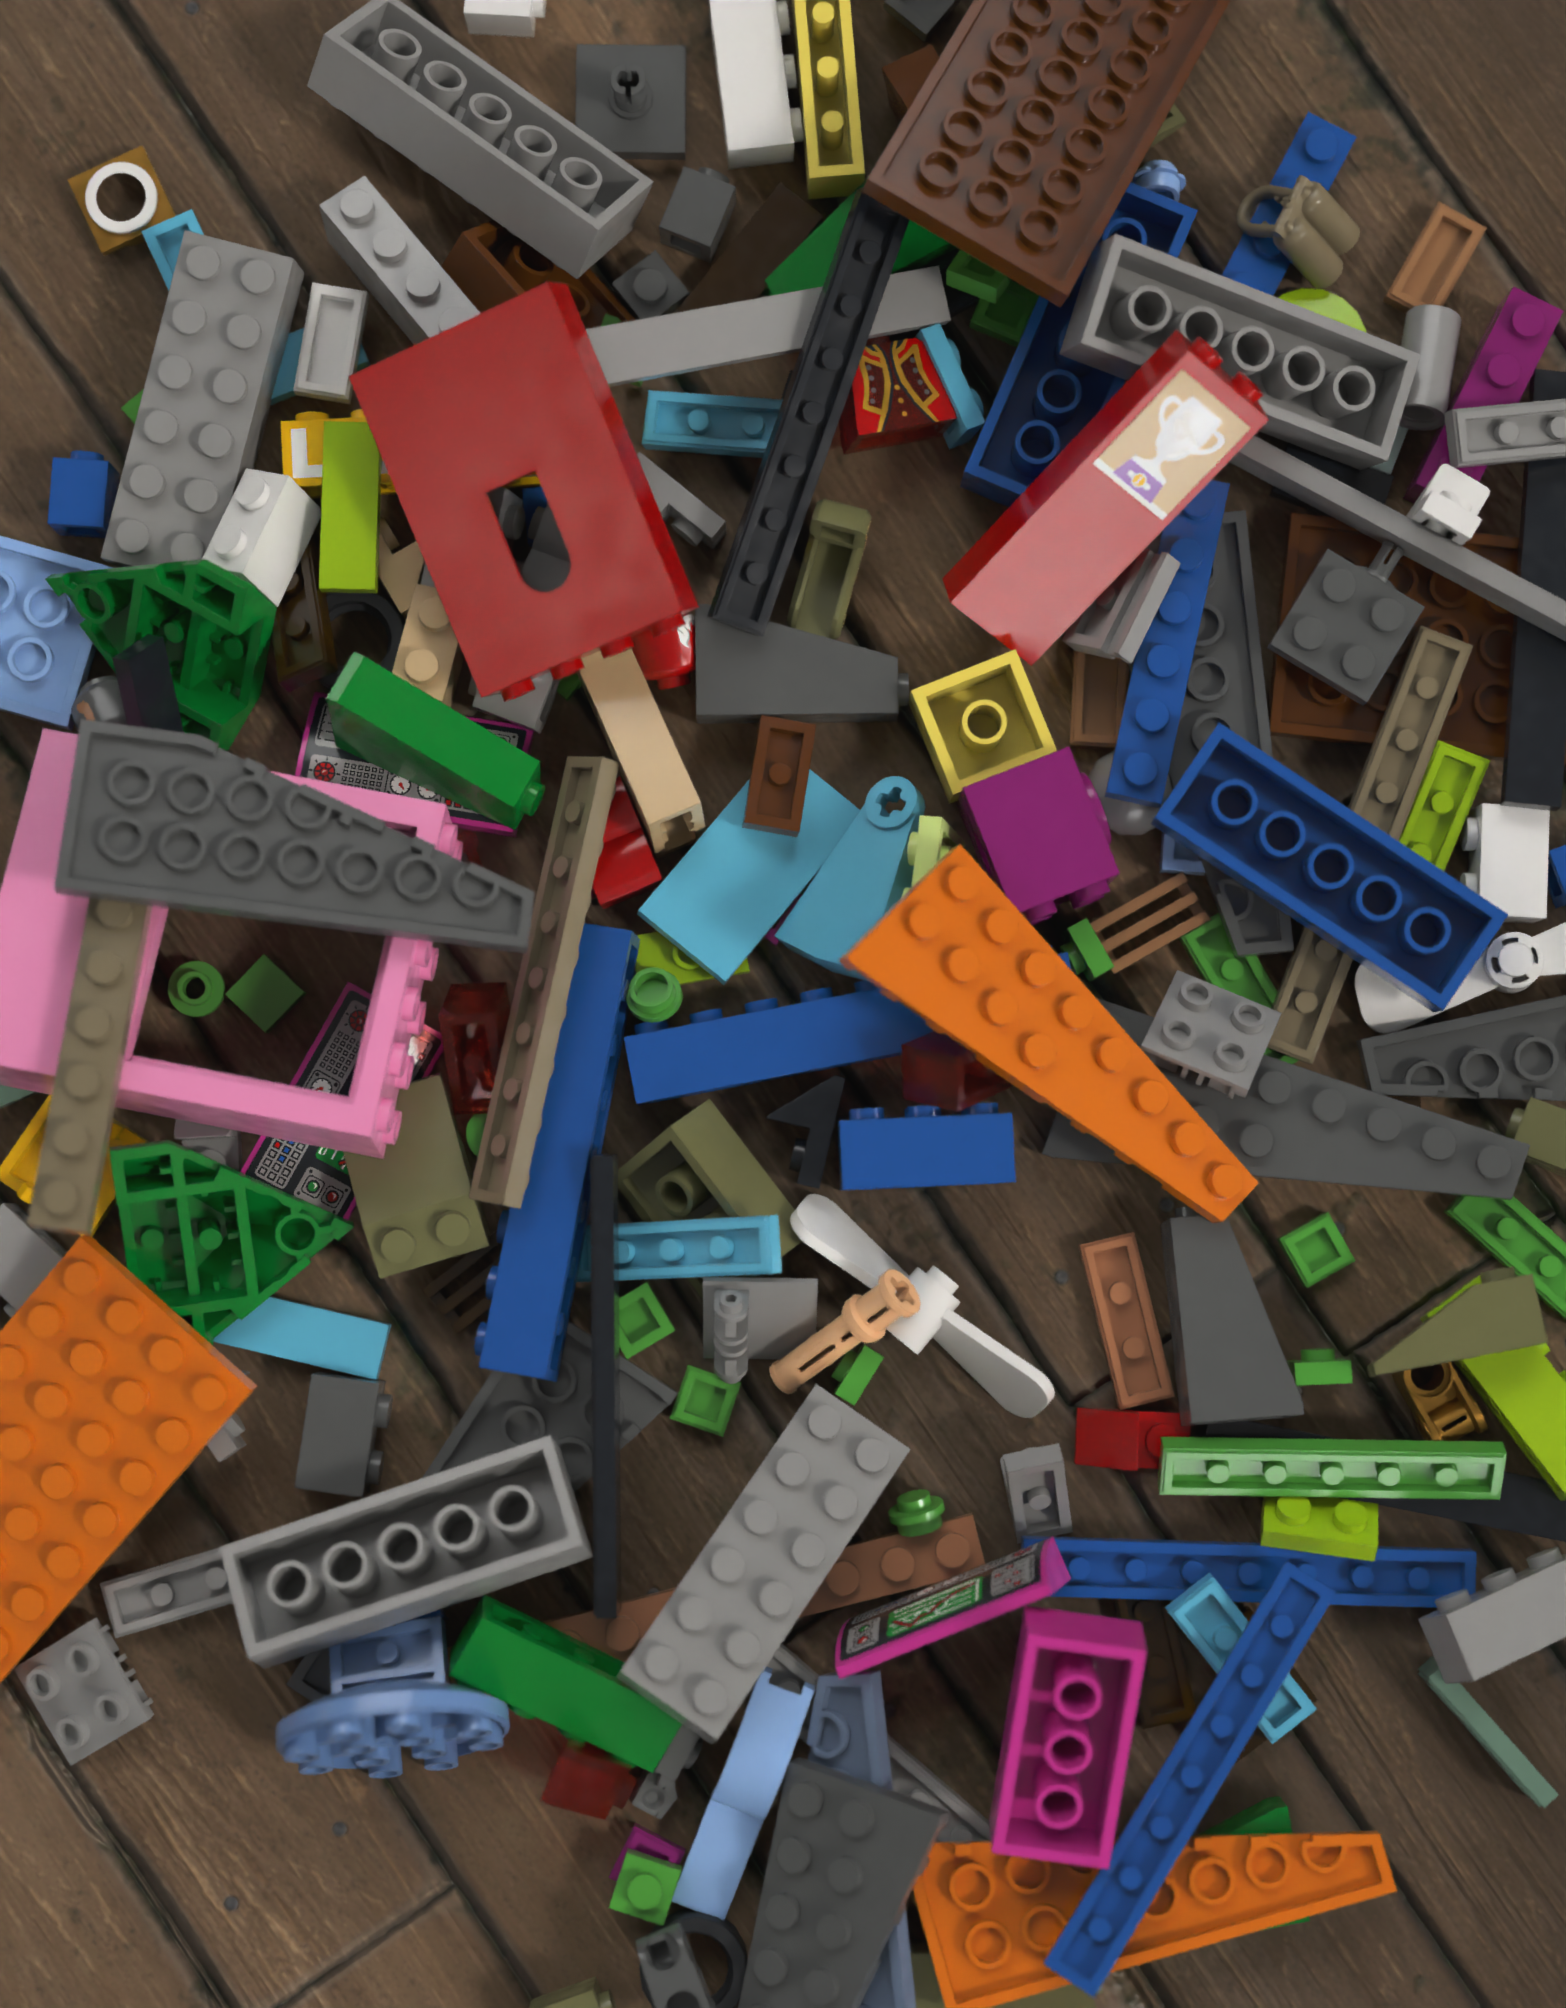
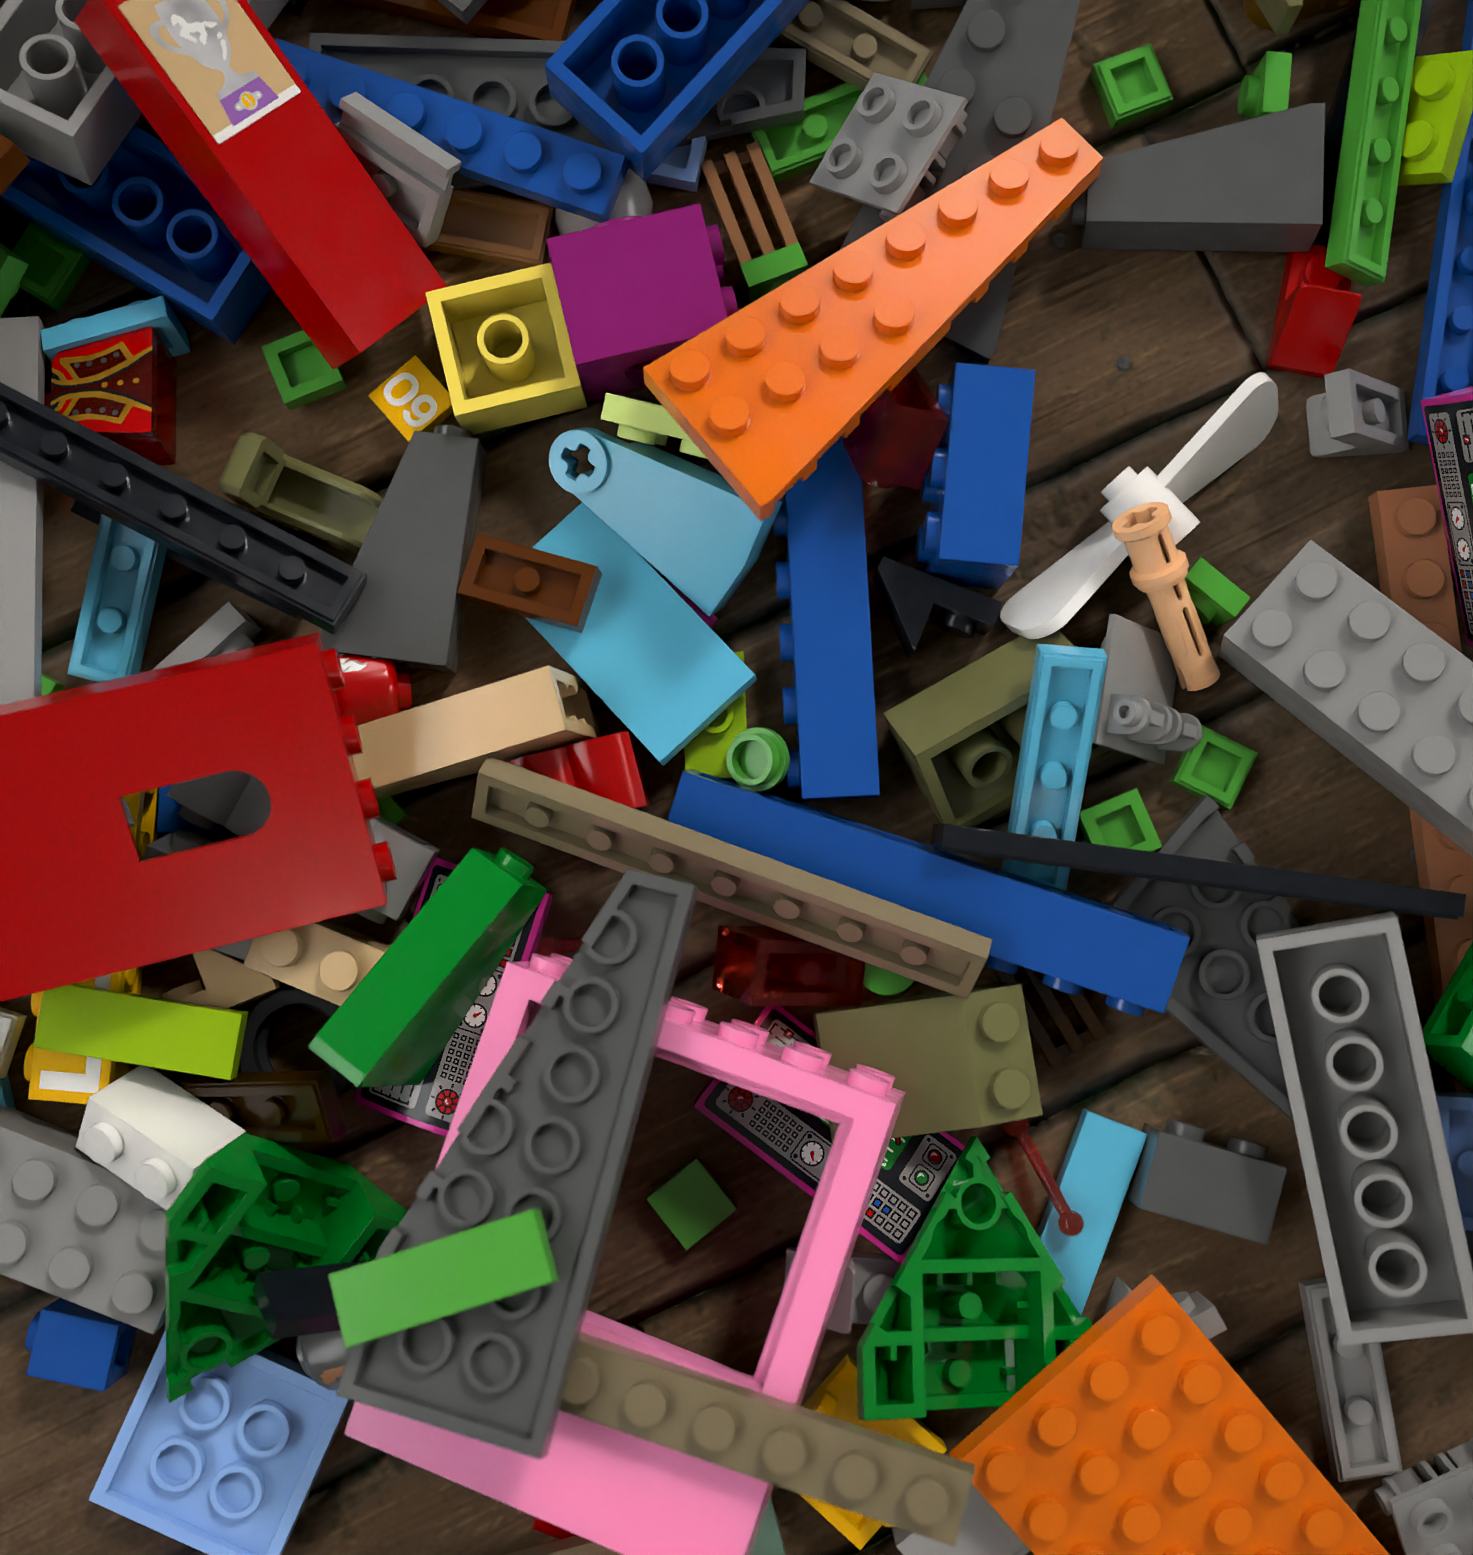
camera: 80 degrees left, 0 degrees up
(184, 790) = (443, 1277): none -> bright green tile
(213, 993) = (679, 1262): bright green plate -> none
(292, 1319) = (1070, 1221): none -> clear red hinge
(917, 1513) = (1370, 549): bright green plate -> none
(932, 649) = (413, 399): none -> yellow tile
(942, 548) = (301, 370): none -> bright green plate
(1126, 1320) = (1182, 298): nougat tile -> none

